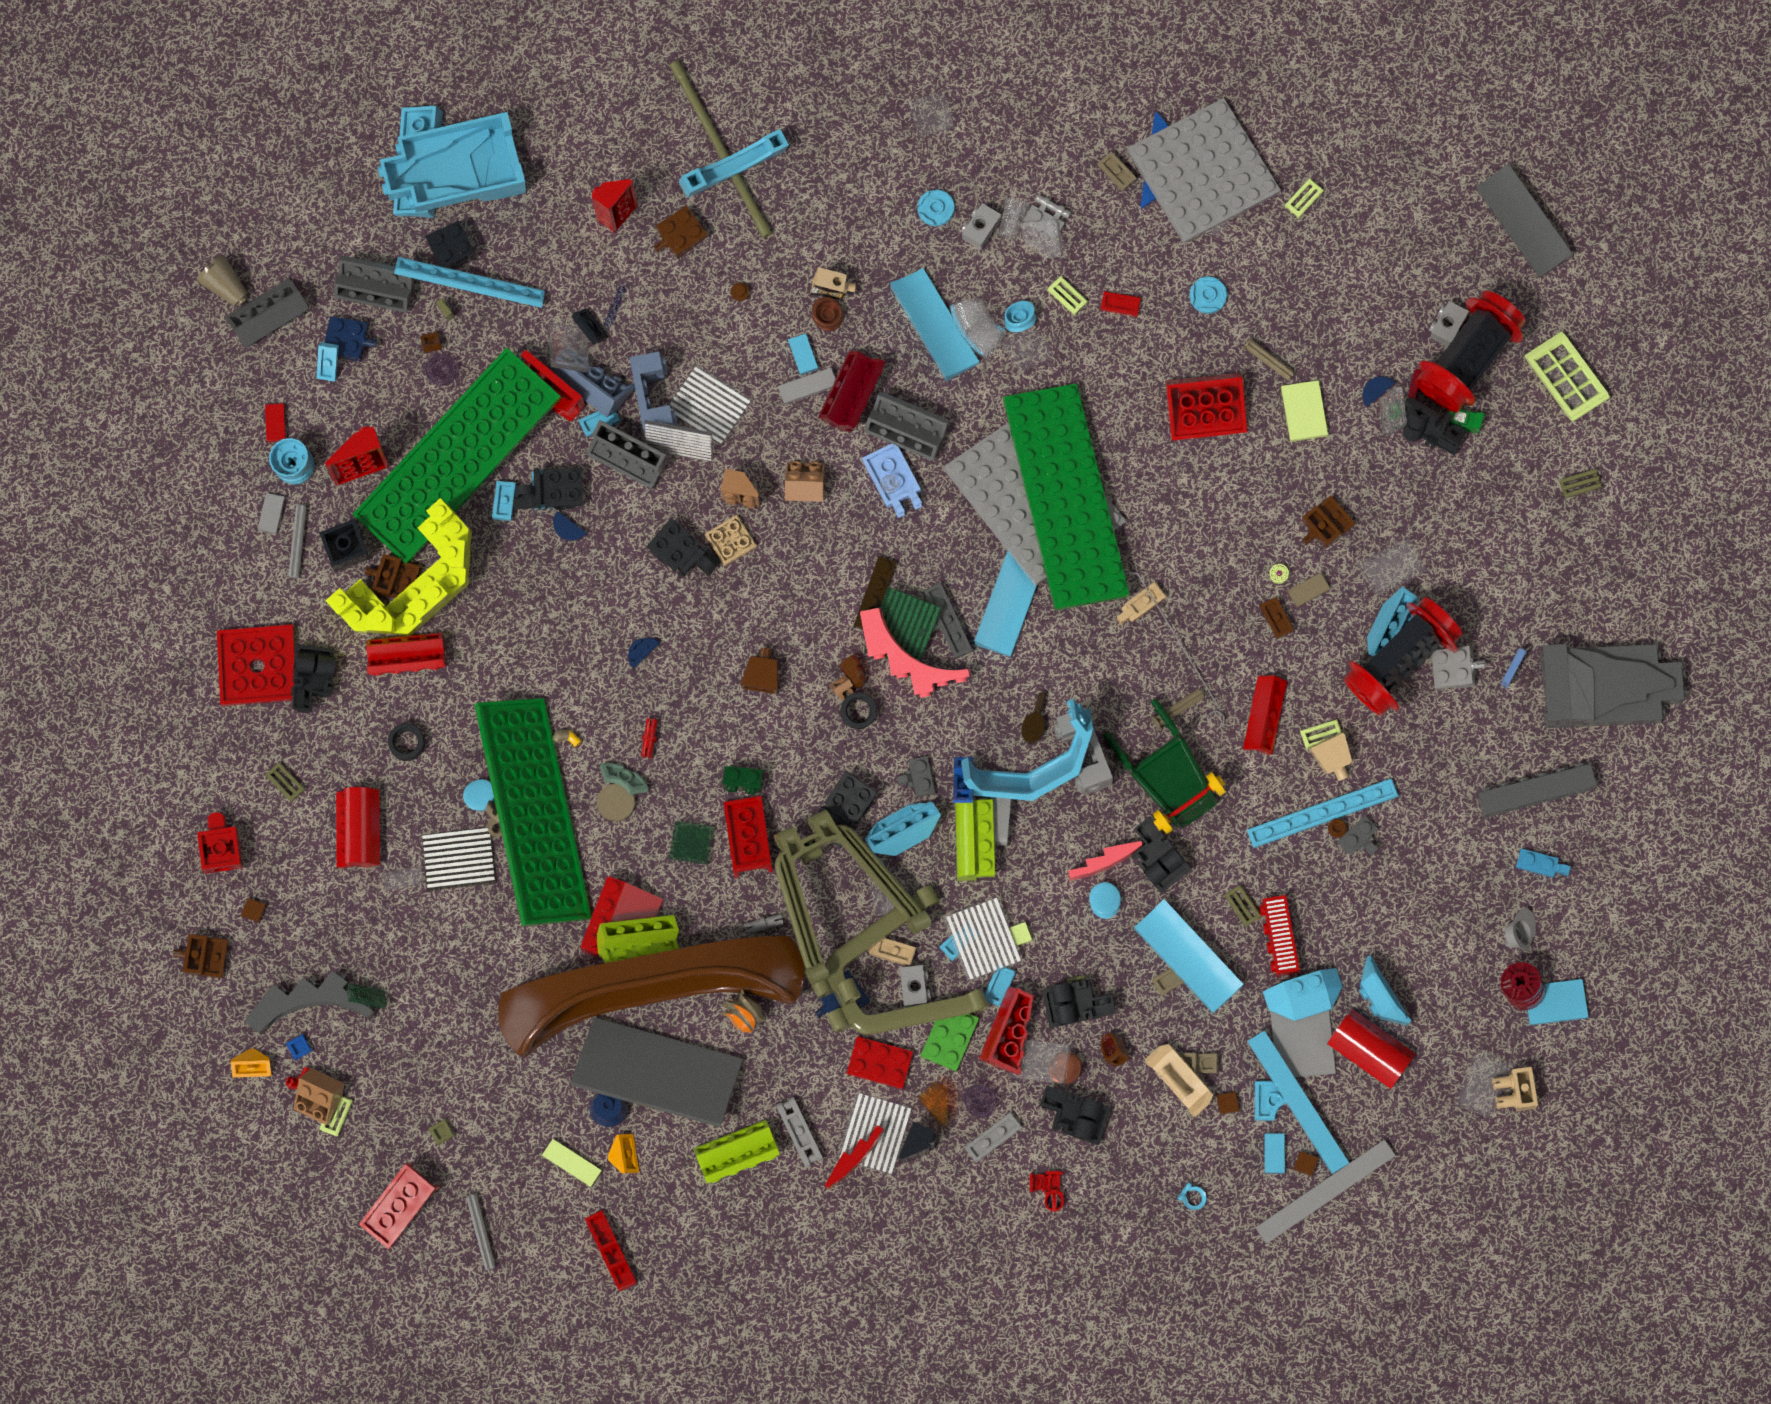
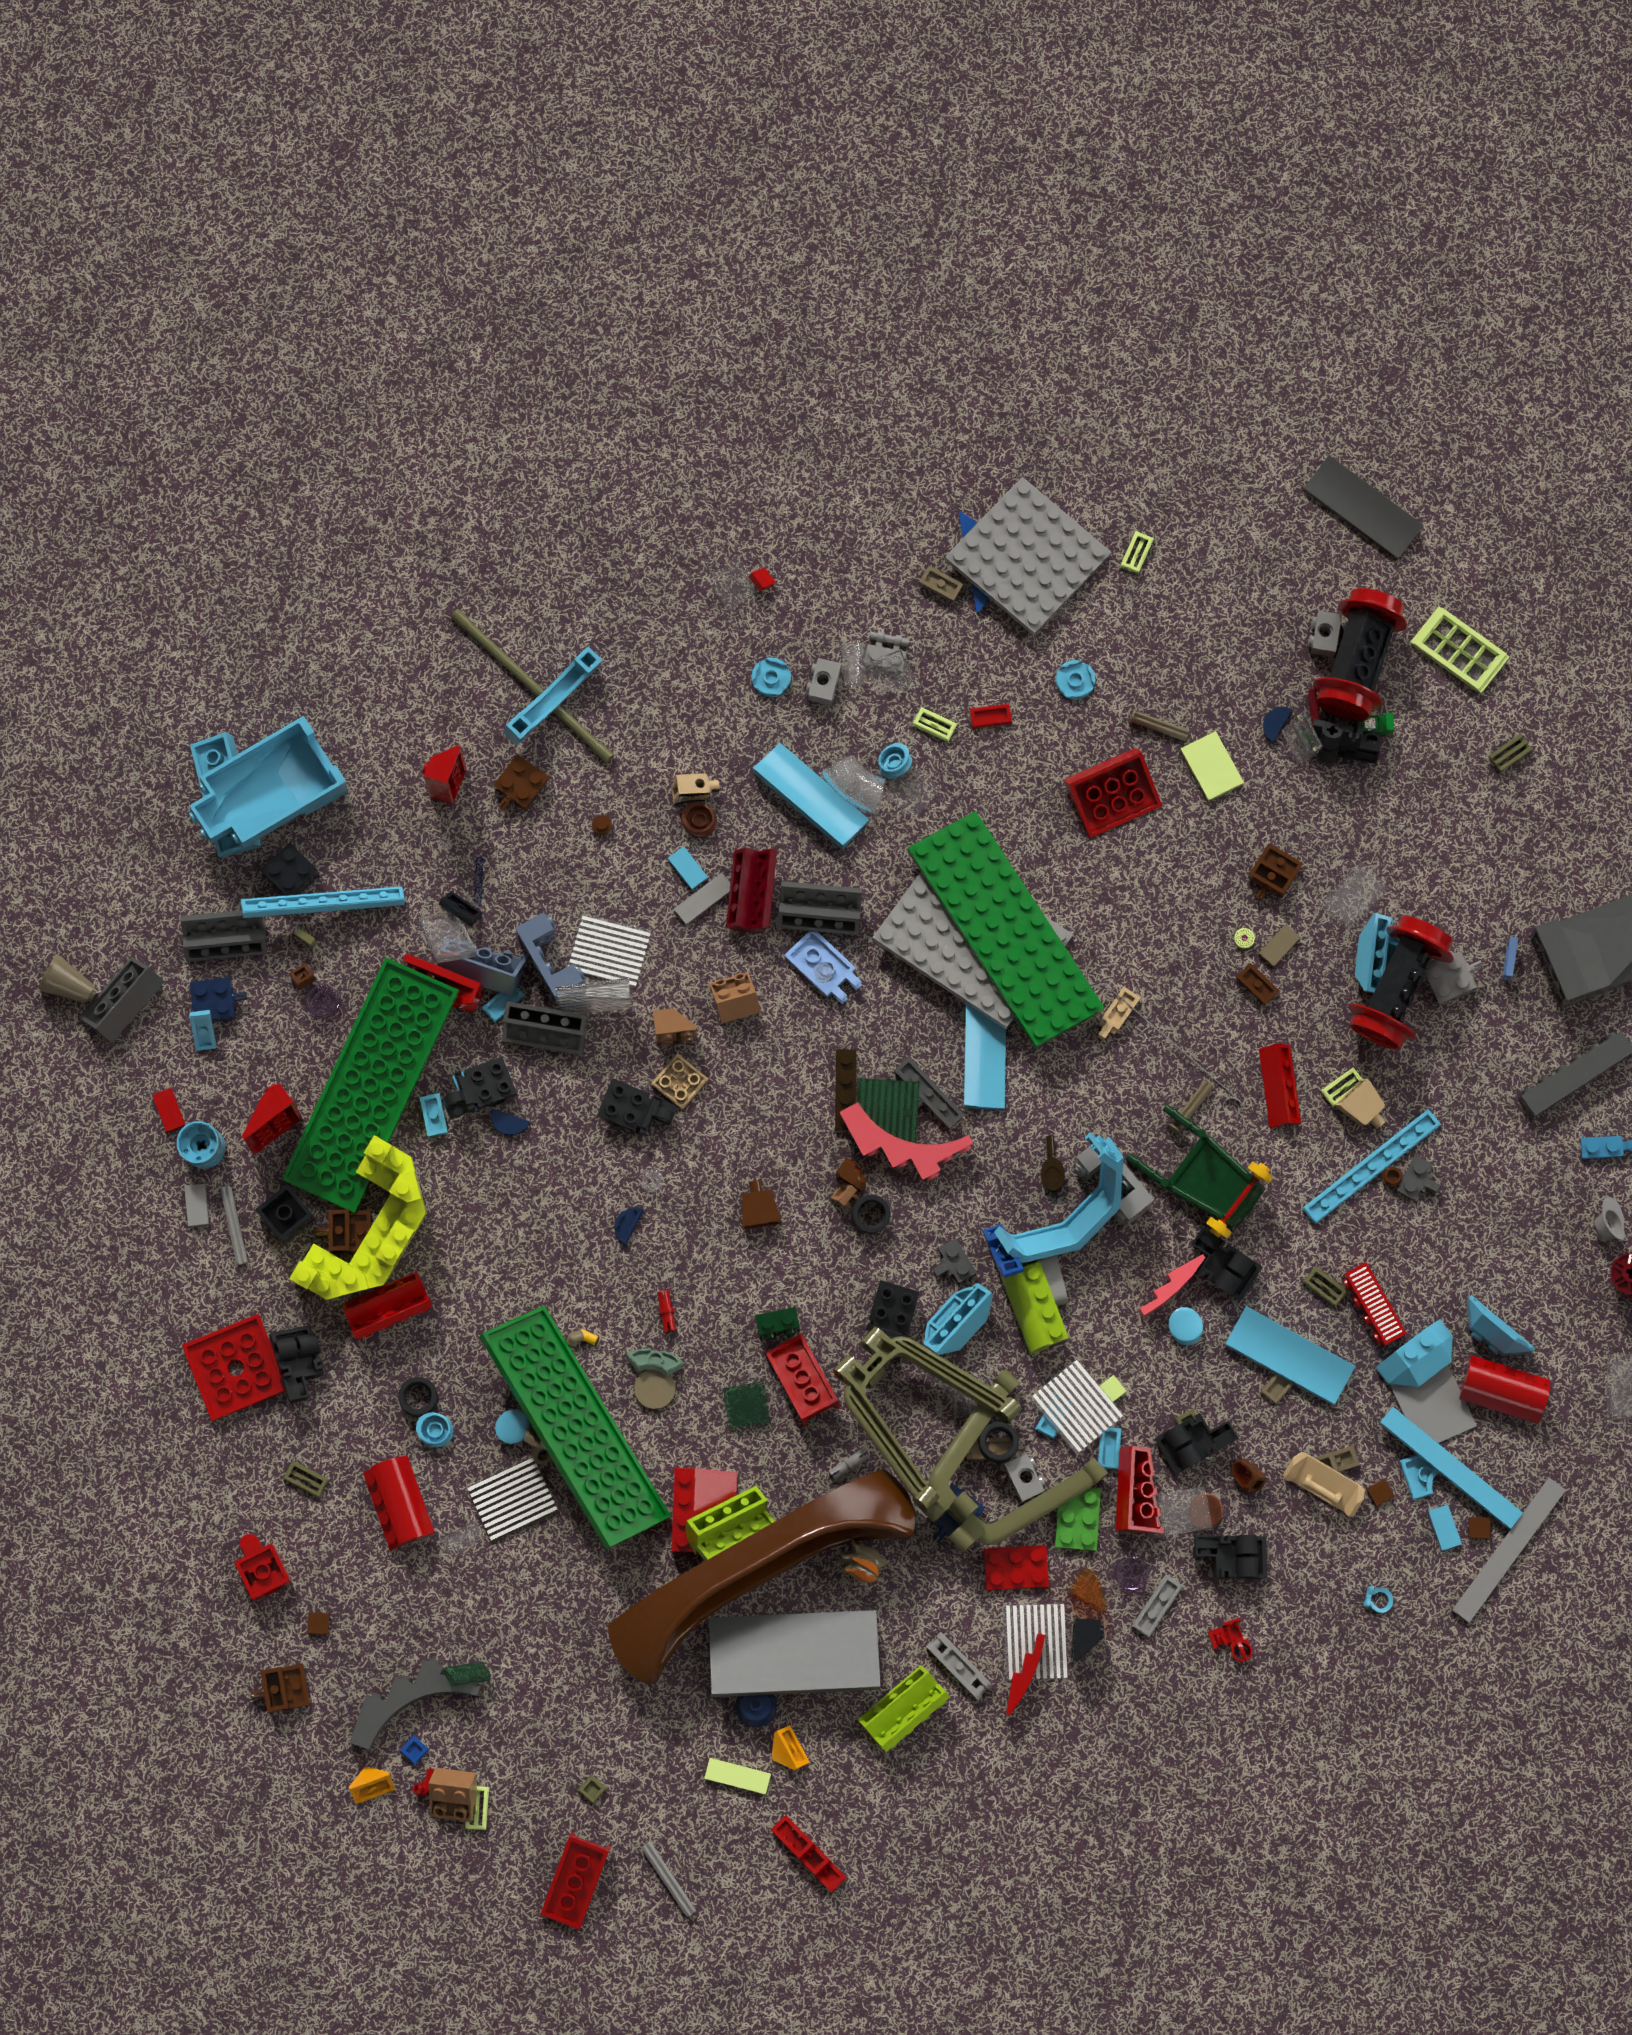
camera: 25 degrees left, 0 degrees up
(411, 775) = (434, 1429): none -> medium azure piece
(673, 613) = (647, 1175): none -> clear brick
(900, 962) = (998, 1426): none -> black tyre
(957, 117) = (762, 579): none -> red tile

